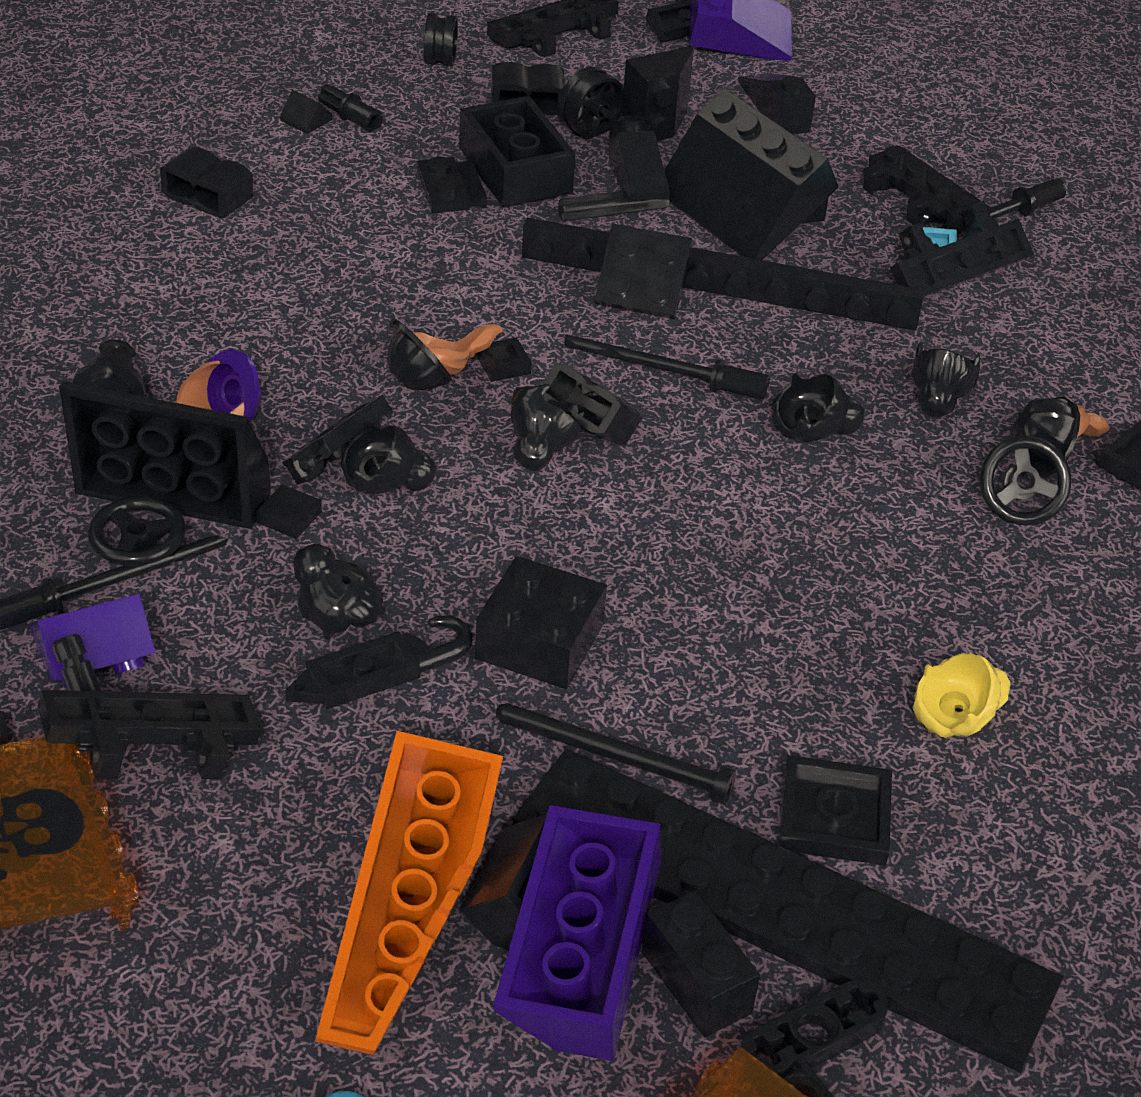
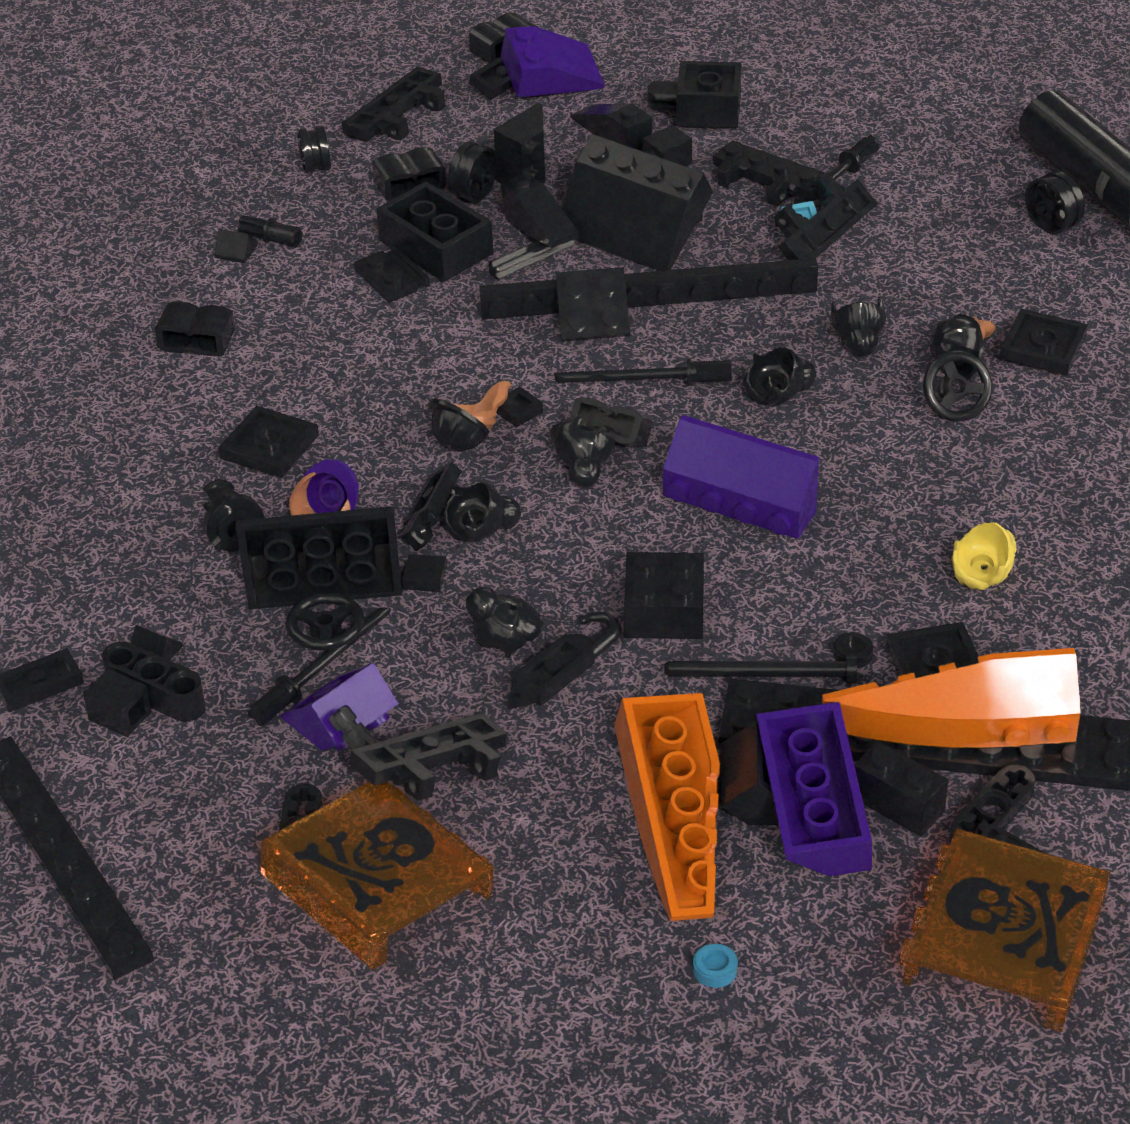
camera: 15 degrees left, 0 degrees up
(209, 318) = (268, 441): none -> black plate
(706, 511) = (741, 477): none -> dark purple slope
(743, 756) = (853, 644): none -> black tile
(824, 133) = (670, 145): none -> black brick
(860, 889) = (982, 705): none -> orange wedge
(888, 89) = (703, 95): none -> black brick

